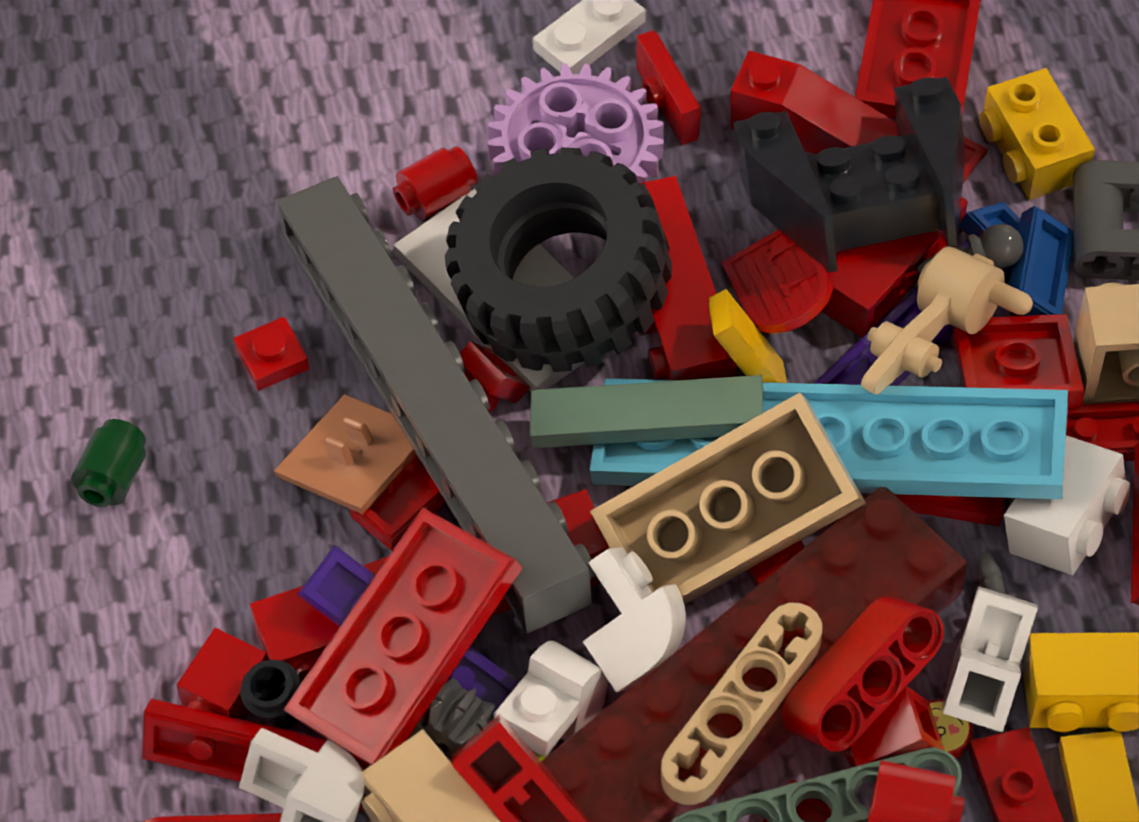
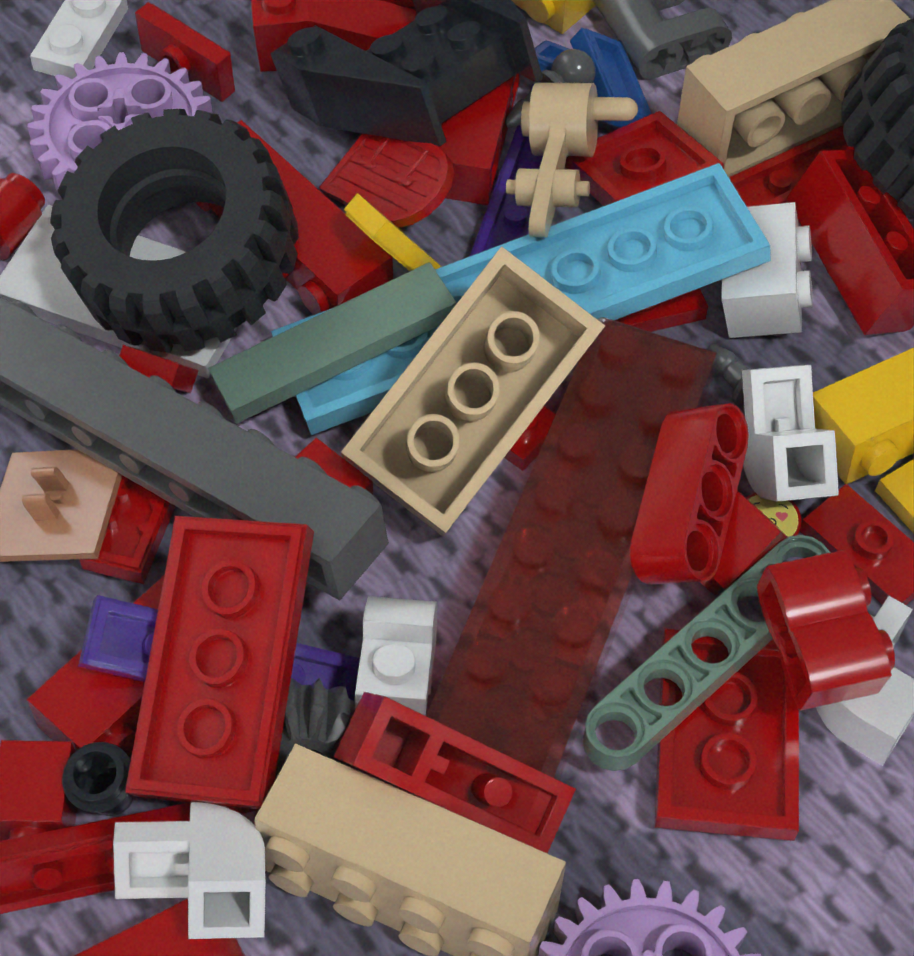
camera: 30 degrees left, 0 degrees up
(649, 621) = (460, 545): white brick -> none
(737, 699) = (598, 572): tan beam -> none

